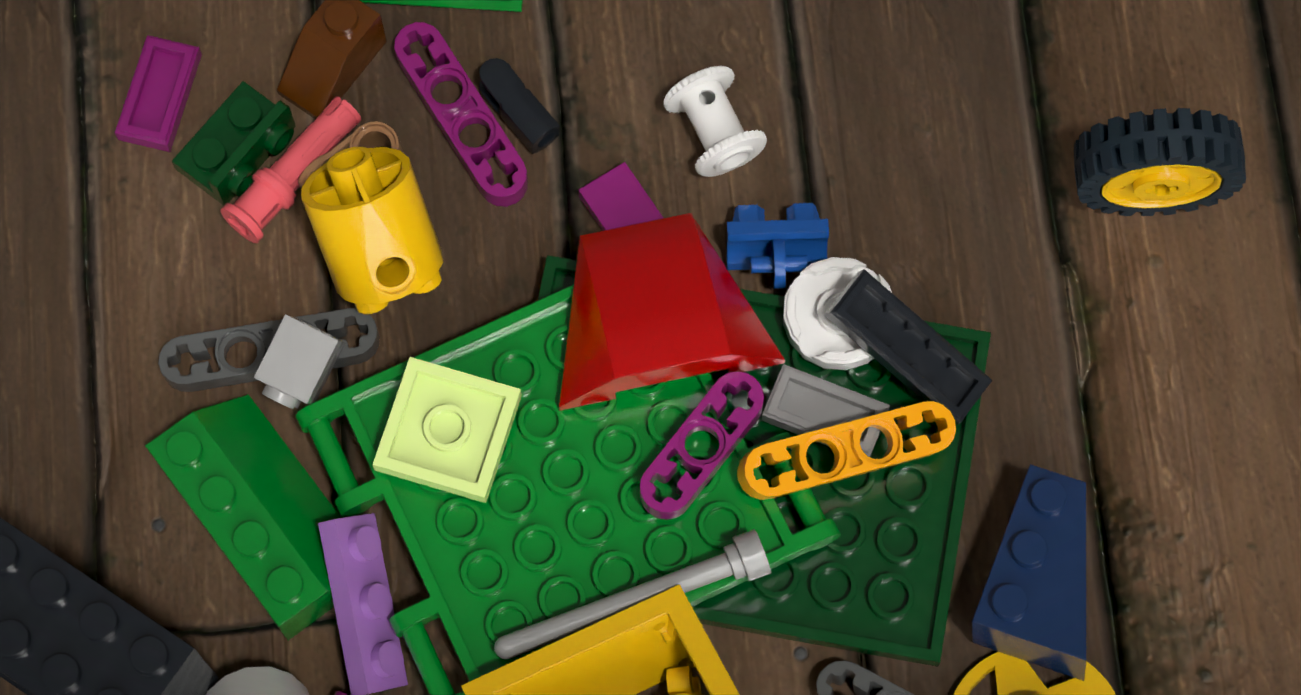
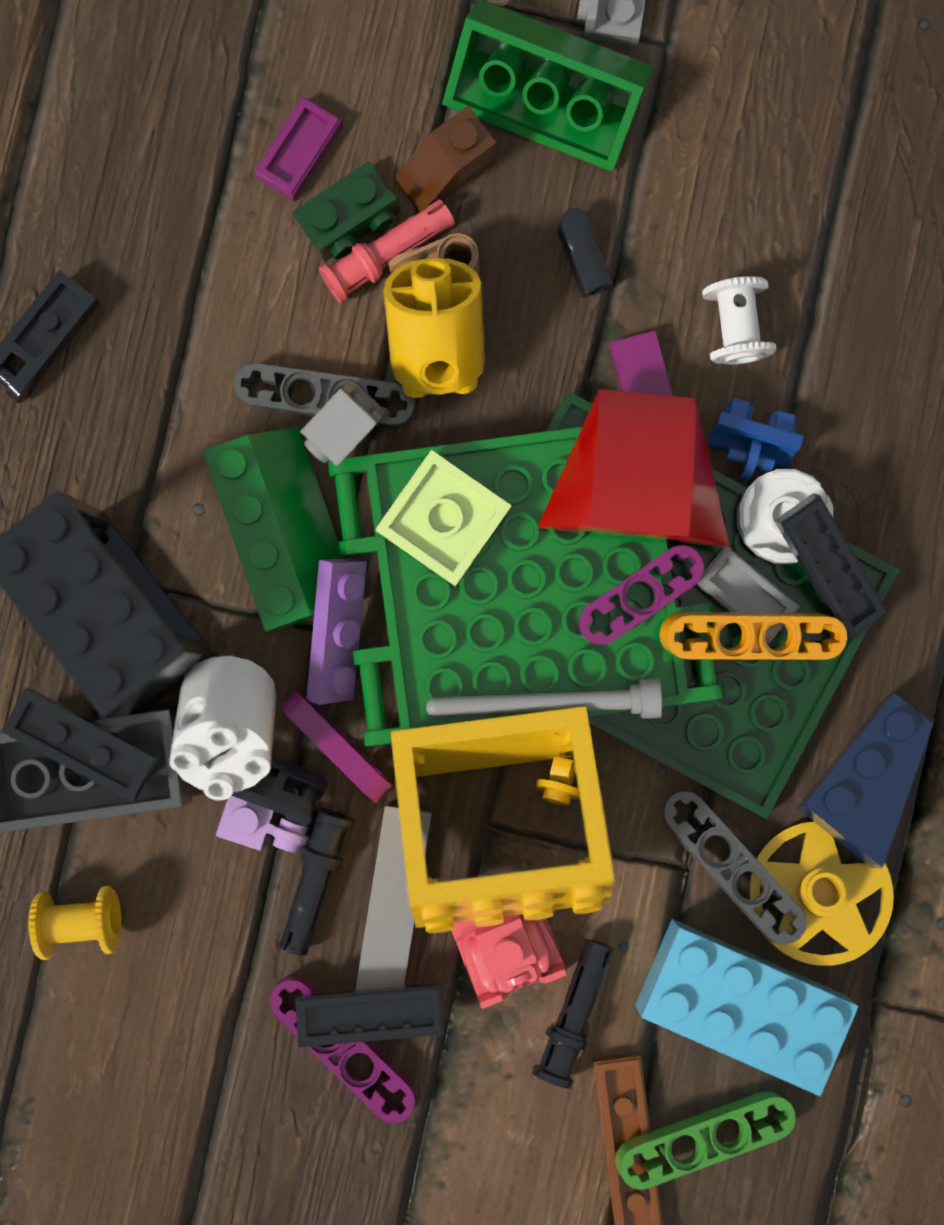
camera: 15 degrees right, 15 degrees up
(465, 111) = (531, 246): magenta beam -> none

